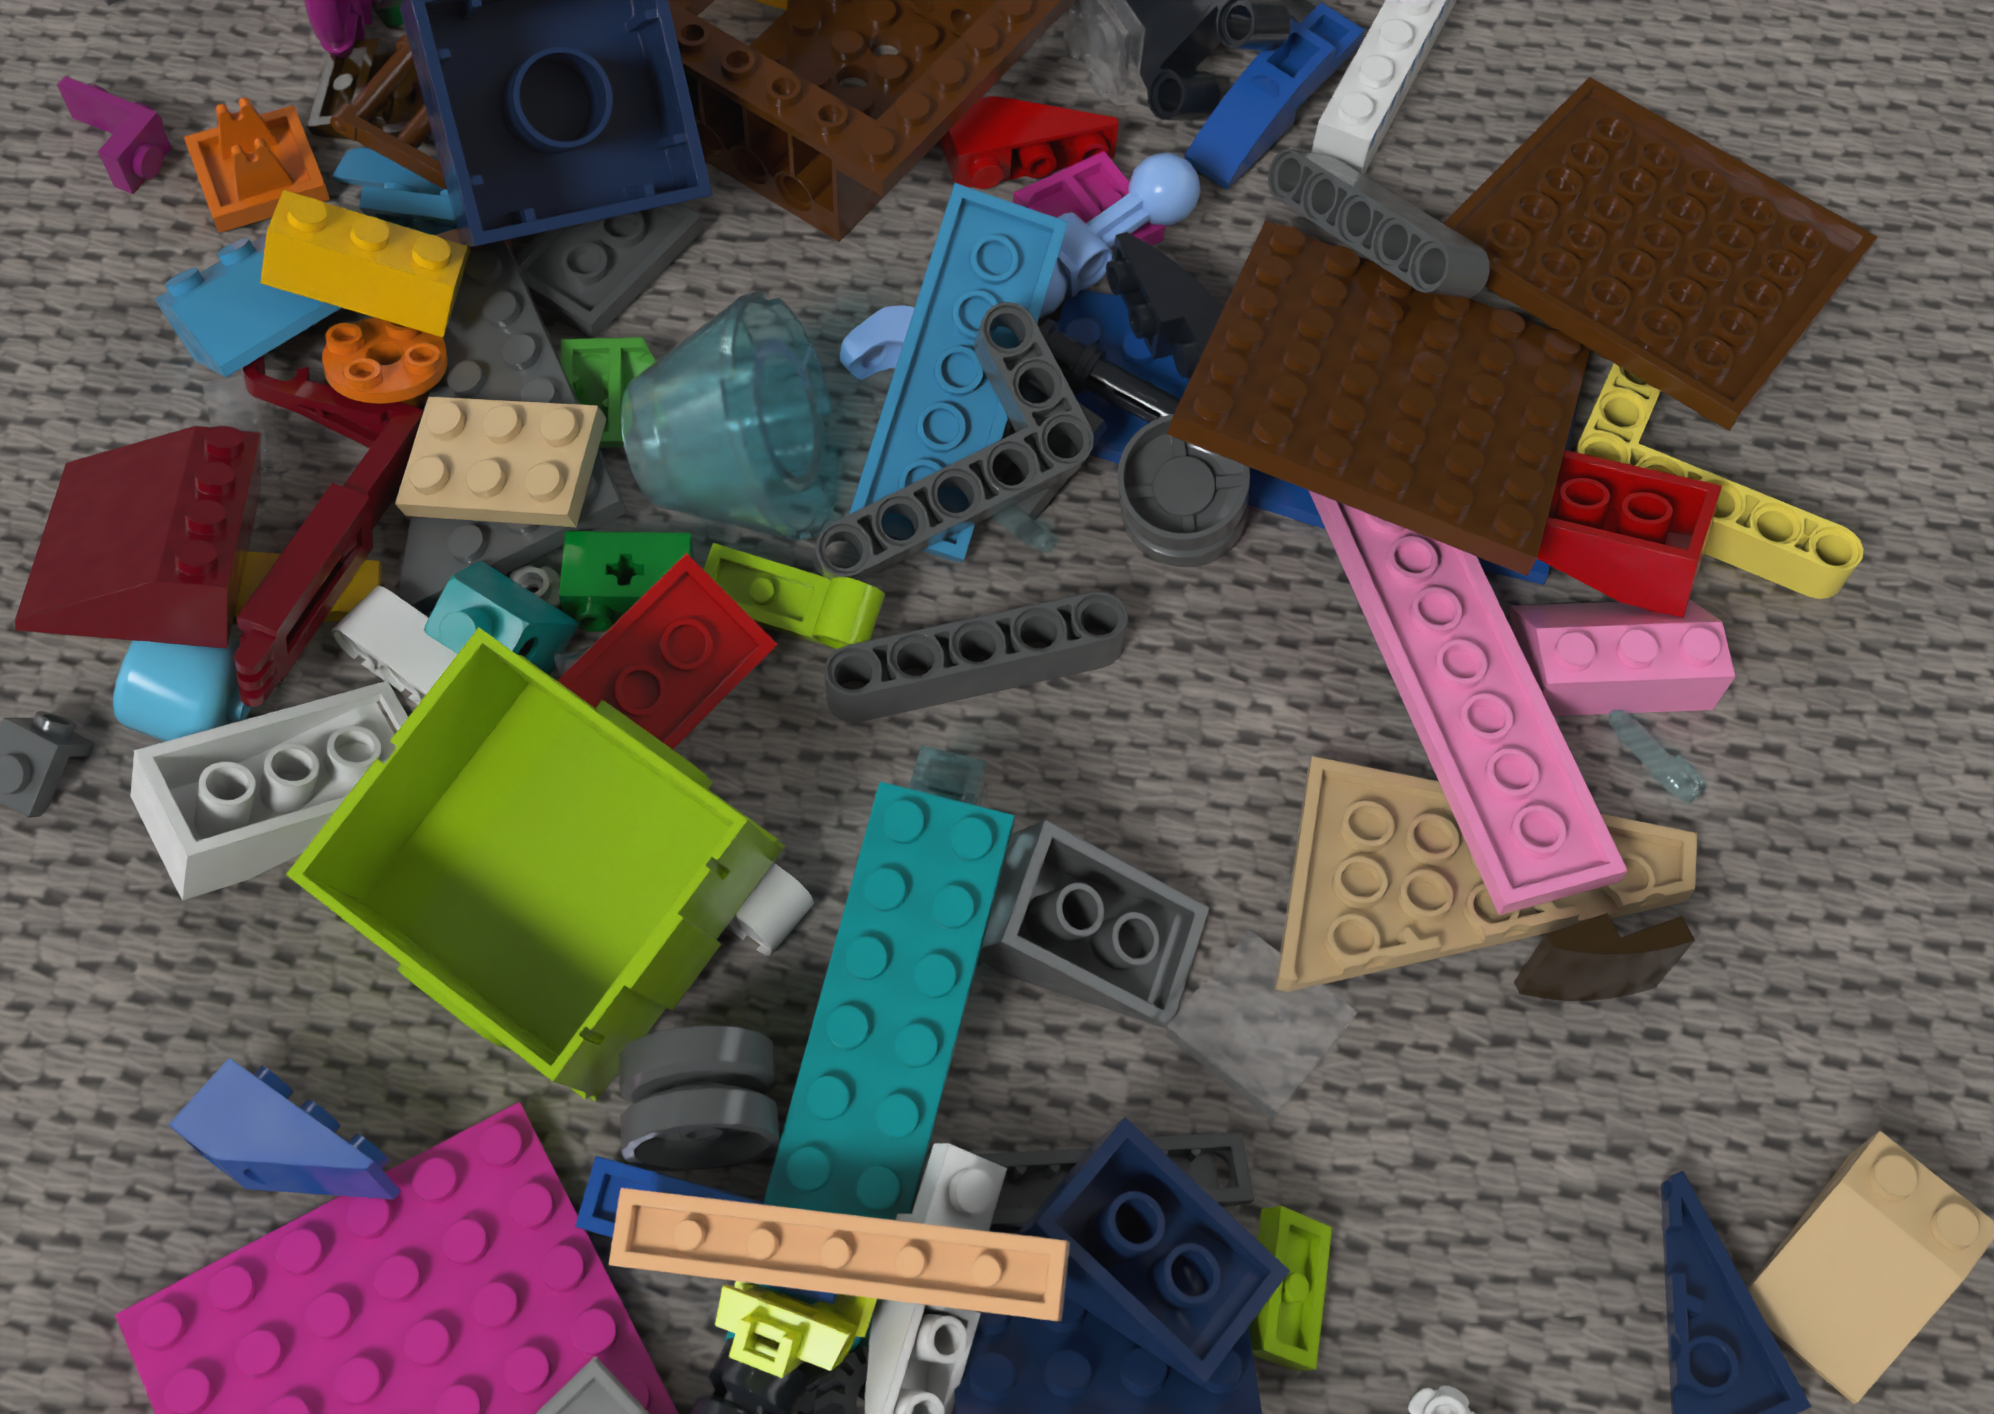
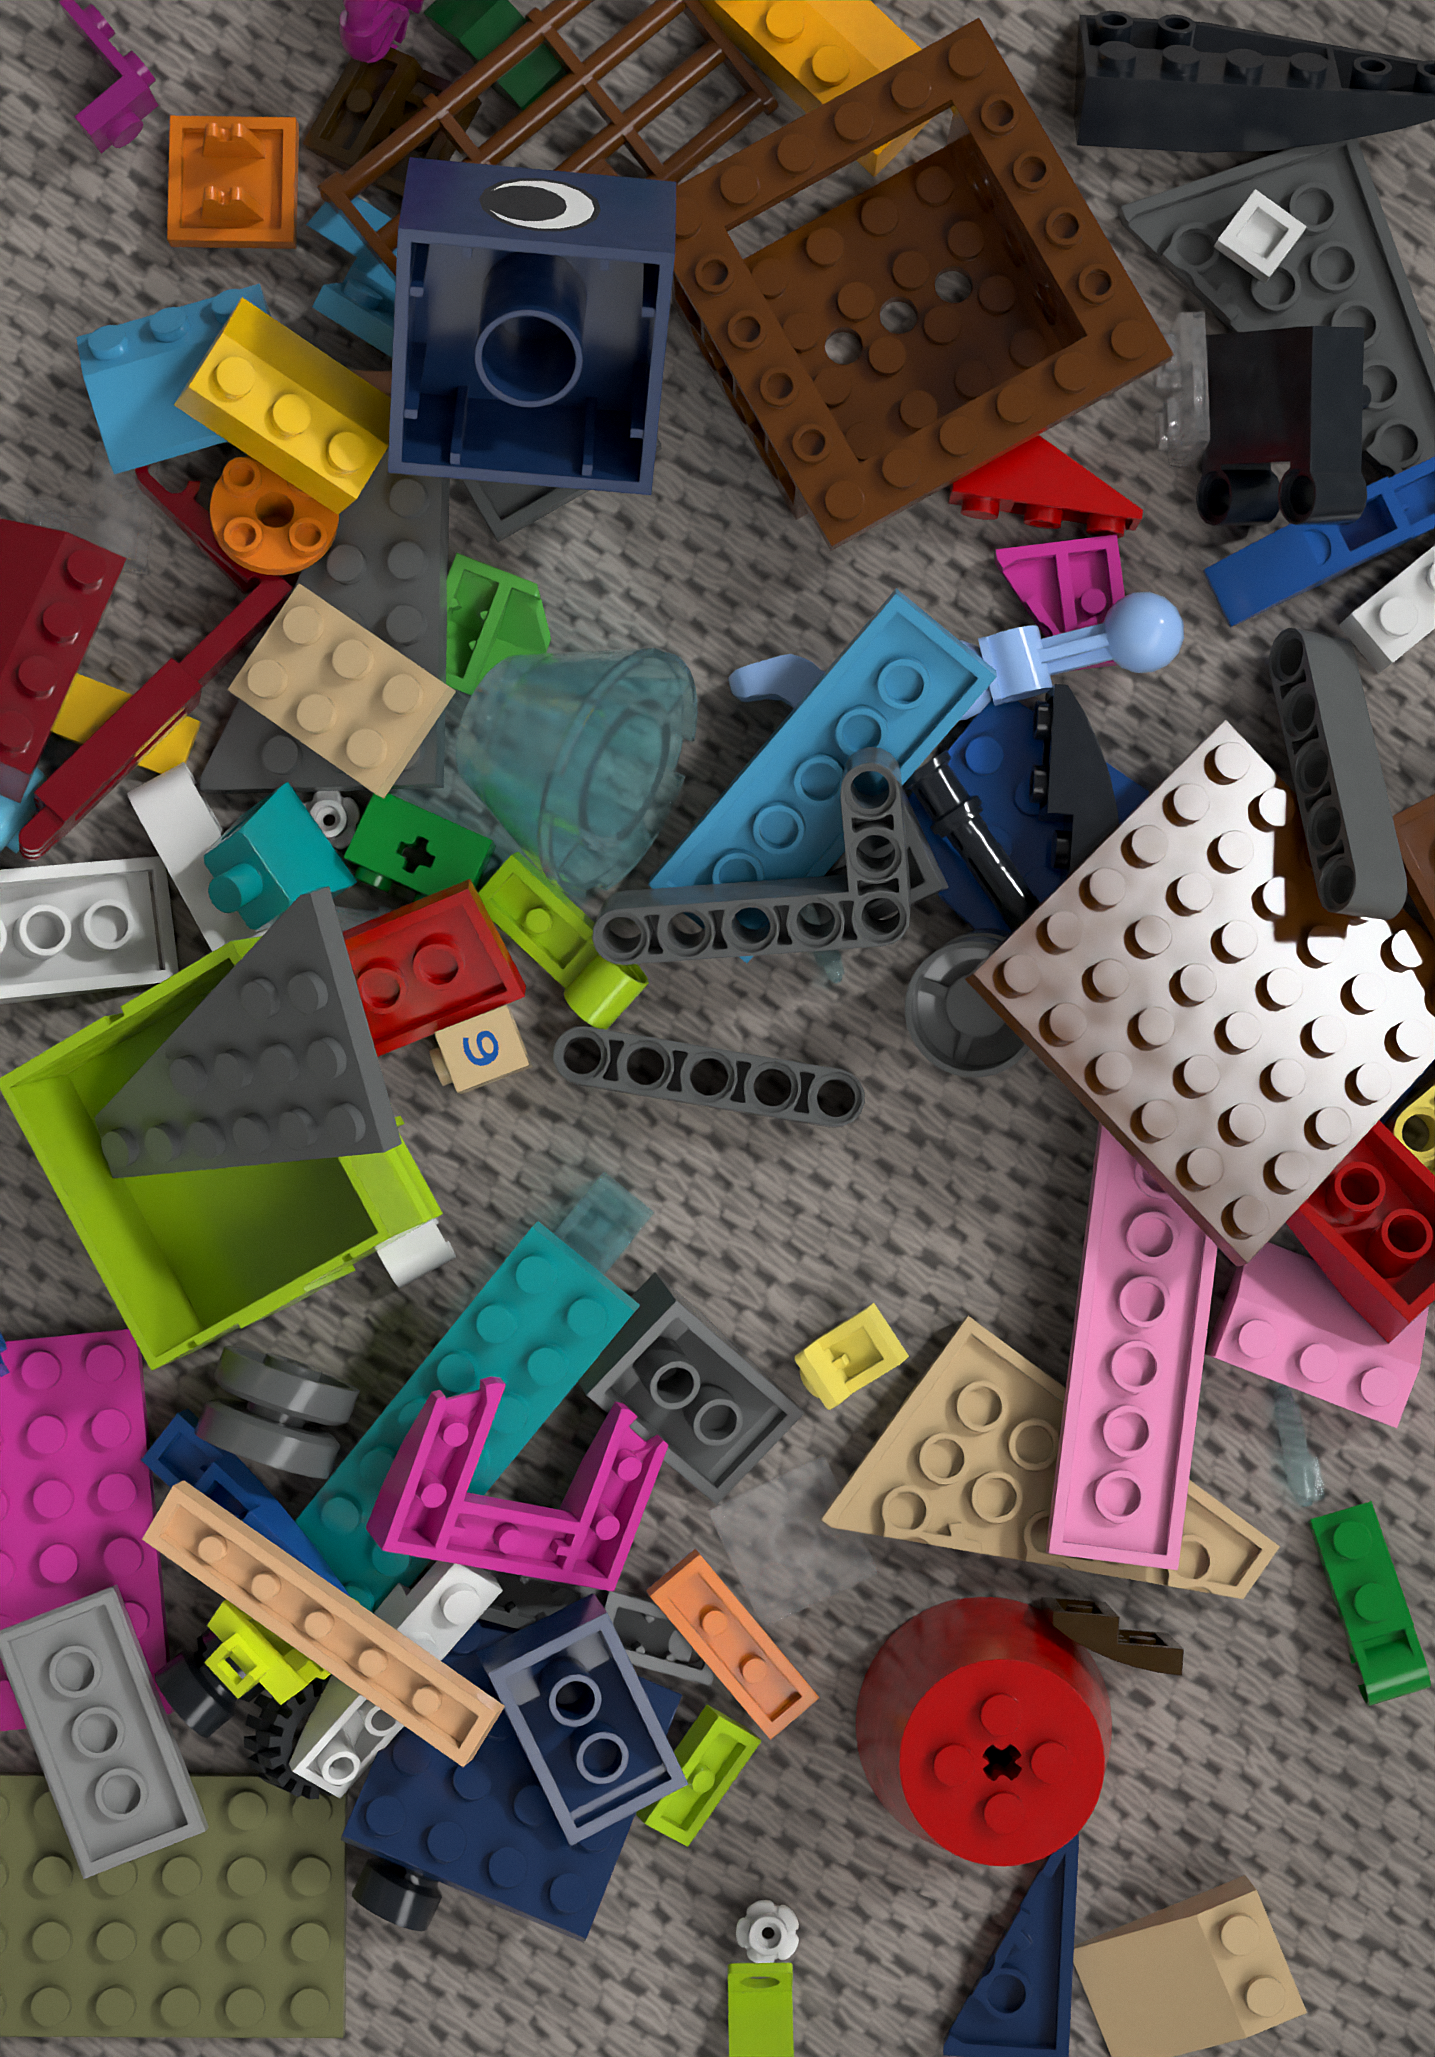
camera: 30 degrees right, 25 degrees up
(558, 728) = (262, 1066): none -> dark grey wing
(757, 715) = (480, 1051): none -> tan brick
(902, 1101) = (432, 1516): none -> dark pink wedge
(1226, 834) = (849, 1357): none -> light yellow bracket
(1257, 1138) = (732, 1644): none -> orange plate
(1525, 1135) = (976, 1679): none -> red cone
(1840, 877) = (1370, 1603): none -> green plate

